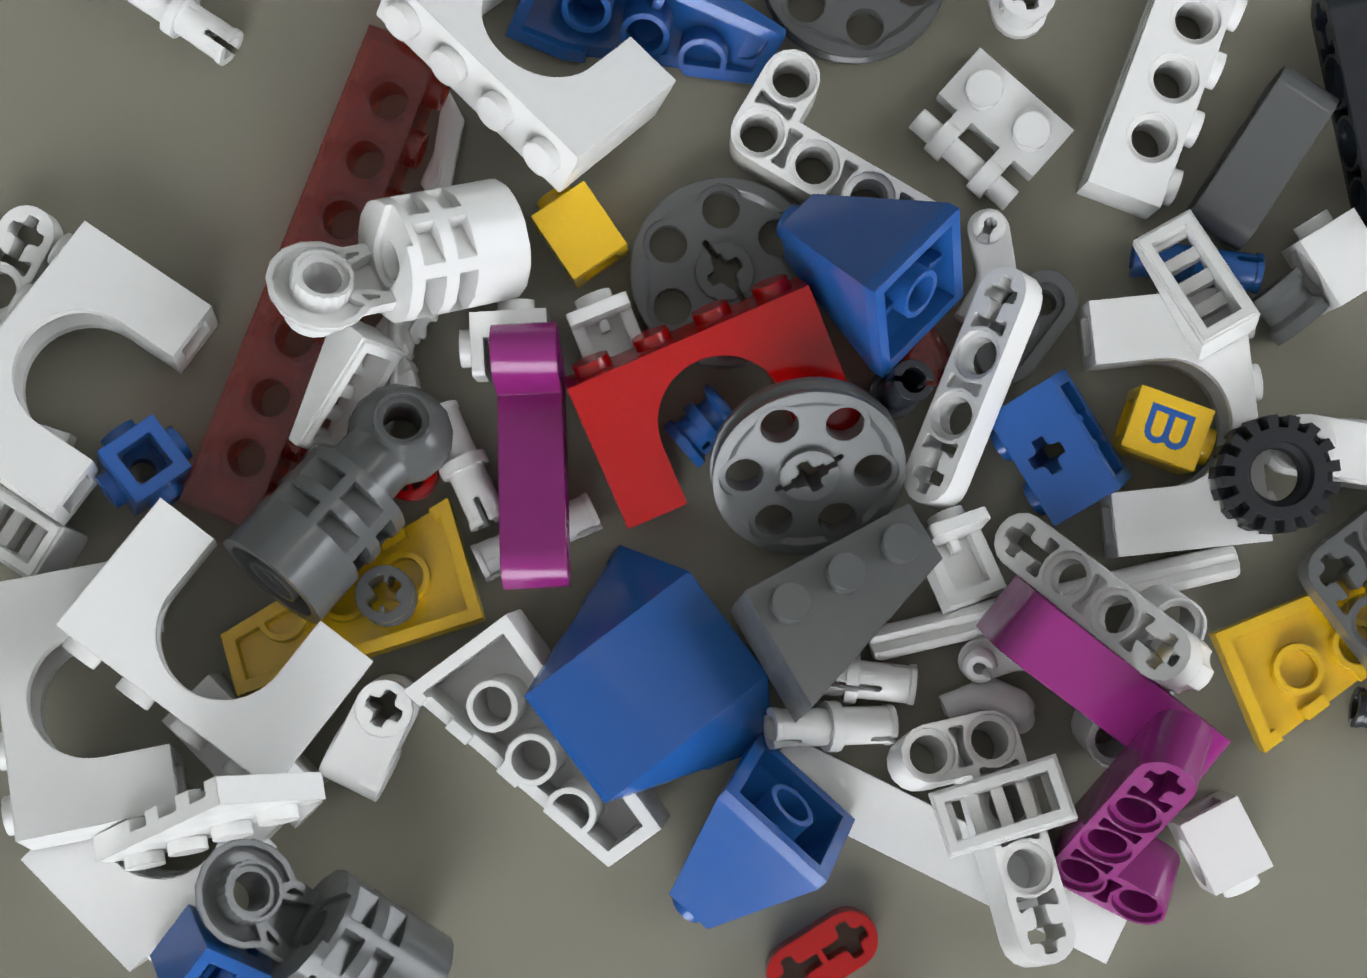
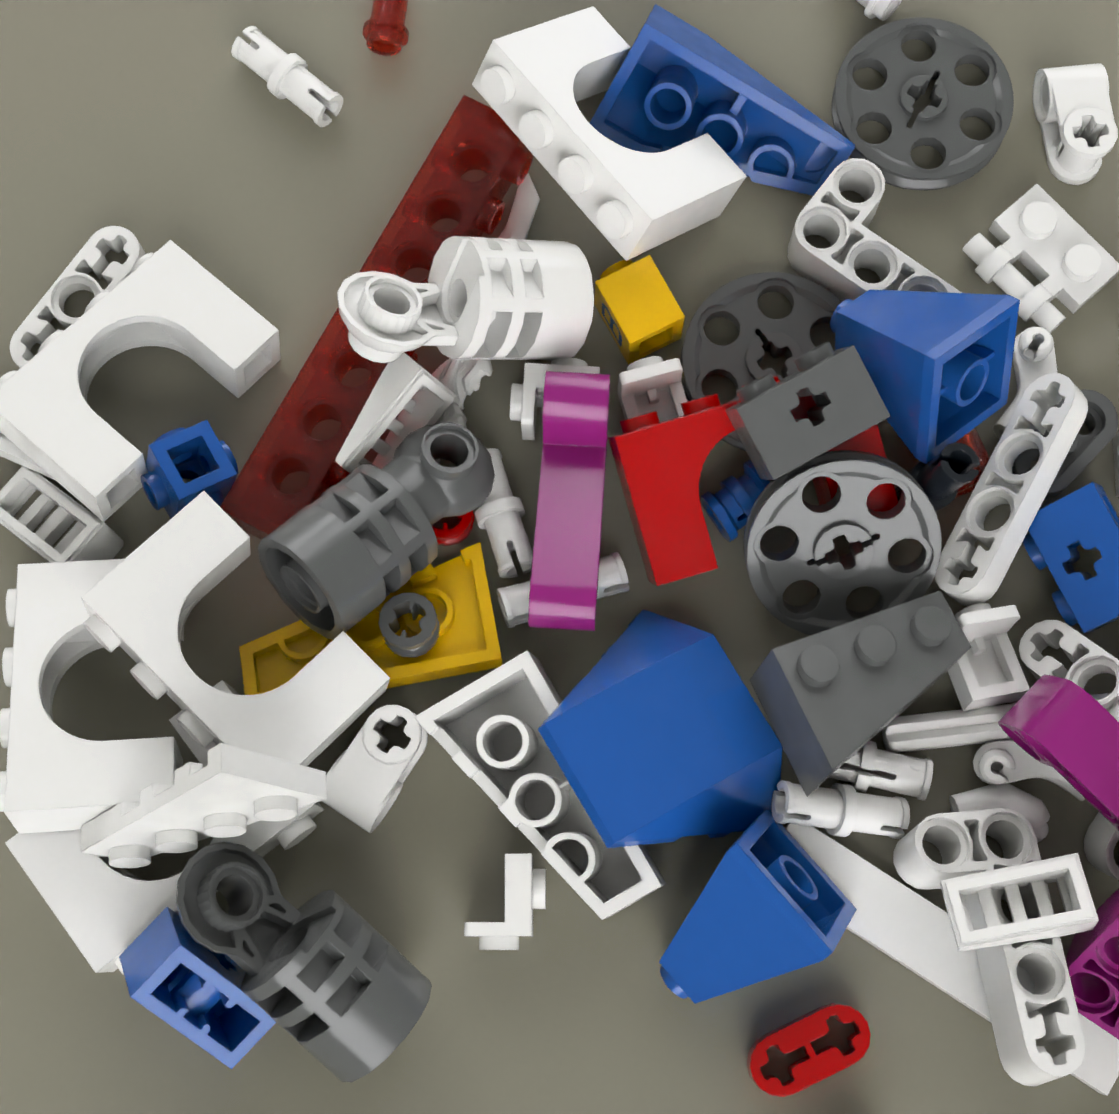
camera: 10 degrees right, 10 degrees down
(531, 841) = (523, 892): none -> white bracket
(790, 339) = (843, 408): none -> dark grey brick

